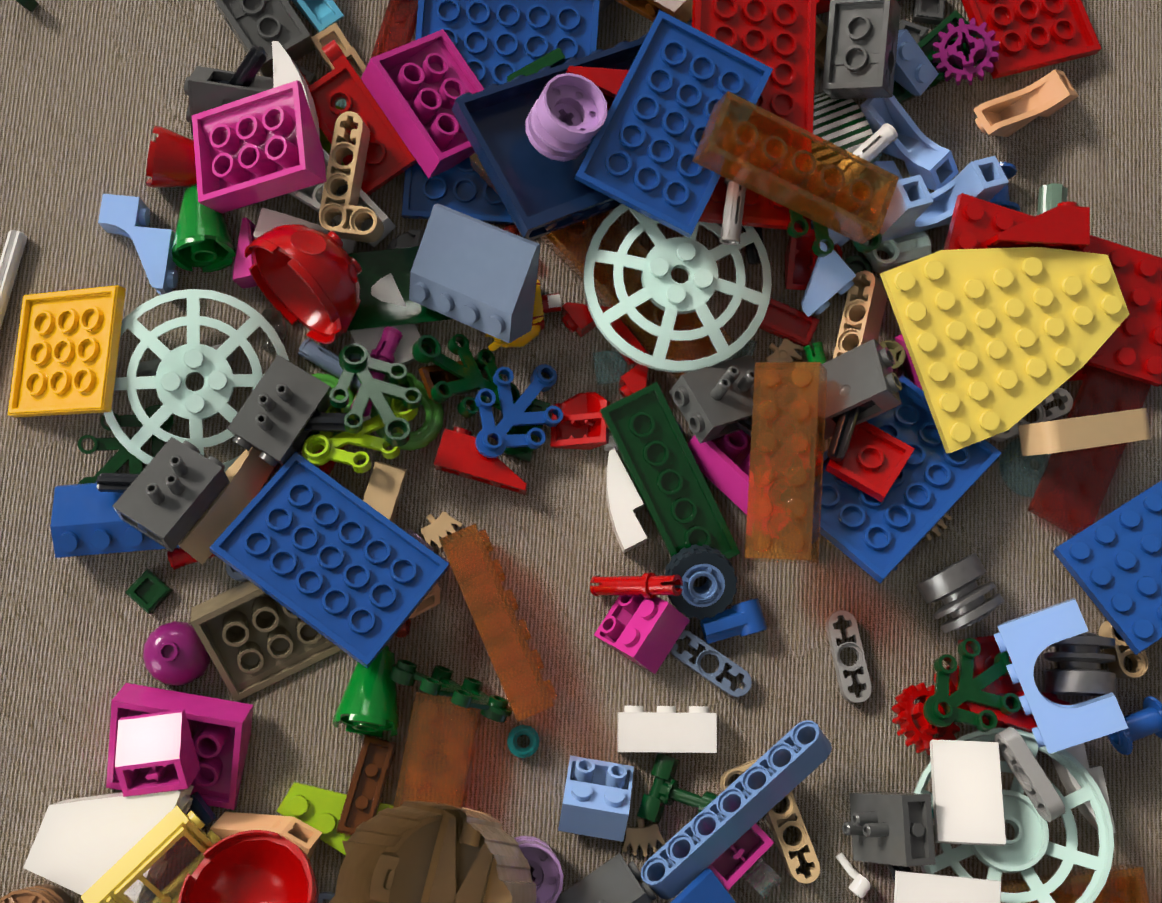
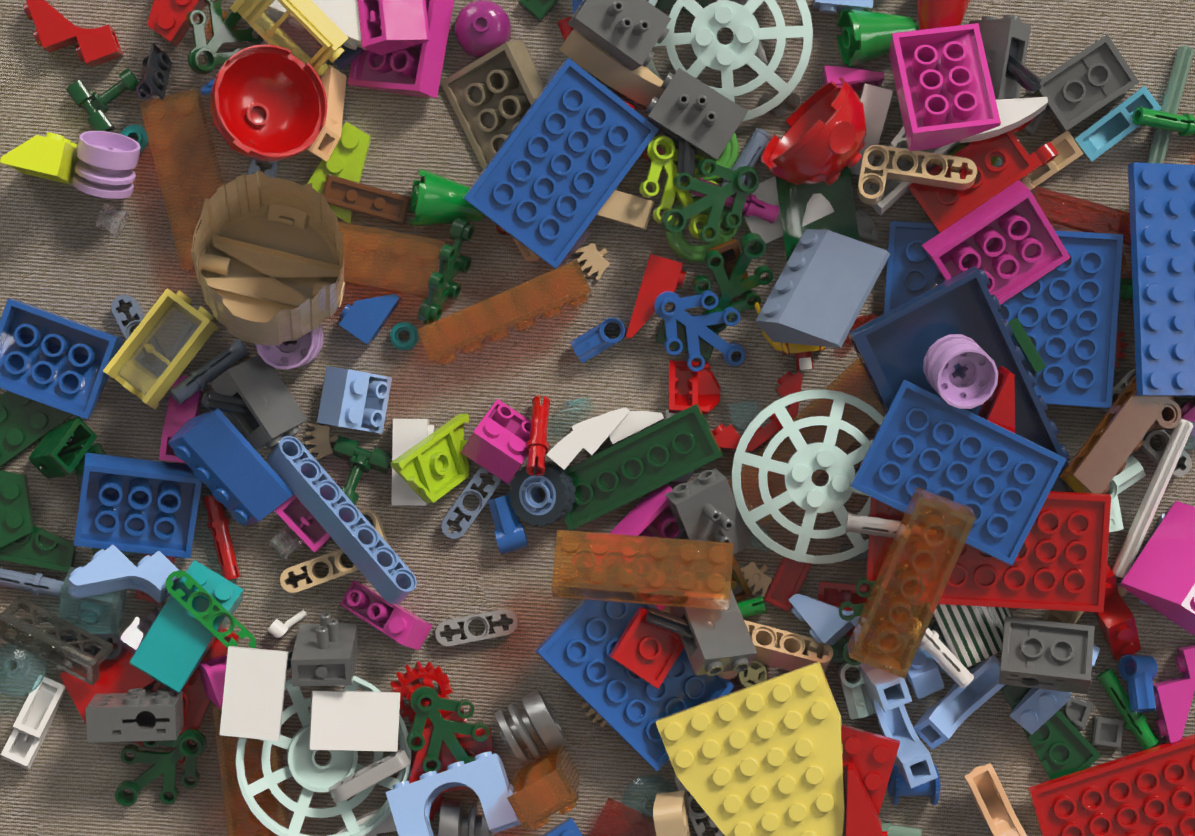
camera: 95 degrees right, 10 degrees up
(500, 782) = (368, 316): none -> blue slope
(529, 524) = (596, 341): none -> blue piece
(600, 545) = (577, 405): none -> clear light blue tile
(637, 529) = (586, 436): none -> white slope
(667, 701) = (436, 461): none -> lime wing
(849, 746) = (388, 618): none -> dark pink slope
(978, 48) = (1038, 761): magenta gear -> none
(1042, 567) = (544, 788): none -> clear orange brick

